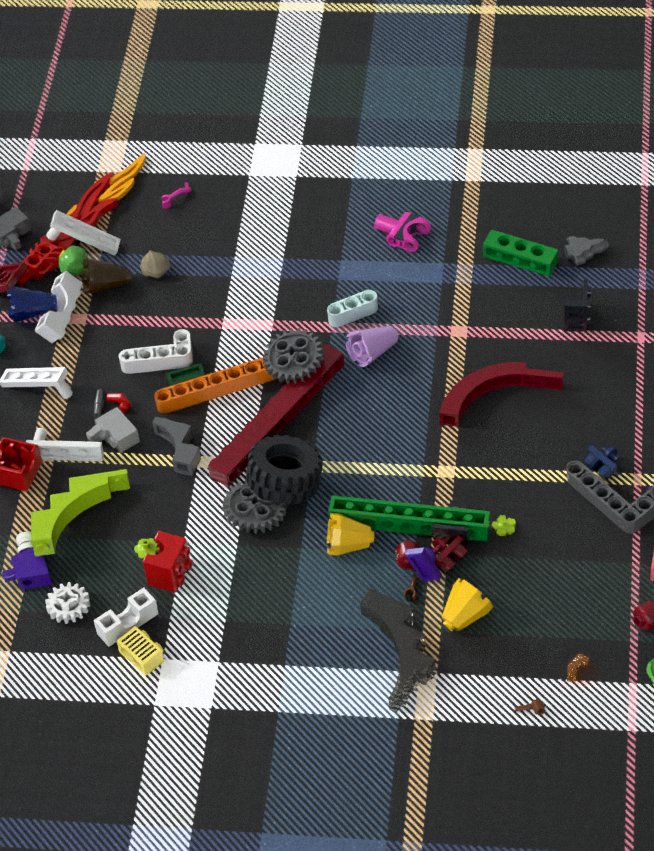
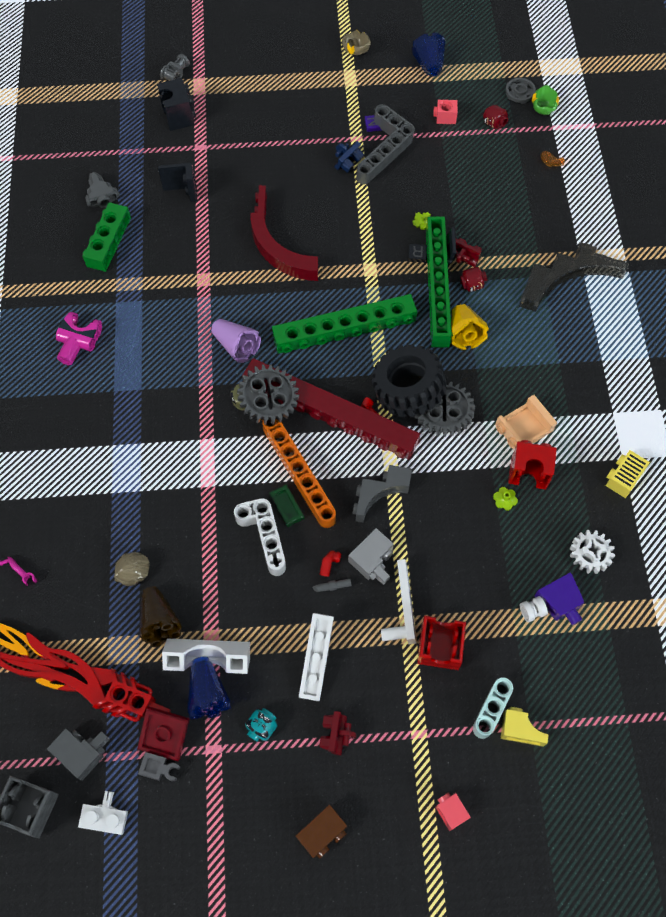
camera: 105 degrees left, 15 degrees up
(72, 260) = (131, 658): bright green hair -> none
(82, 232) = (94, 653): white piece -> none
(84, 493) = (519, 584): lime arch -> none
(139, 610) = (609, 500): white arch -> none
(219, 573) = (526, 423): none -> light nougat panel
(352, 308) = (188, 372): light aqua beam -> none
(374, 436) = (335, 320): none -> green brick
(411, 590) = (509, 277): reddish brown hand -> none
(423, 562) = (485, 259): dark purple tile -> none
(464, 606) = (521, 230): yellow cone -> none
(536, 705) = (594, 180): reddish brown hand -> none

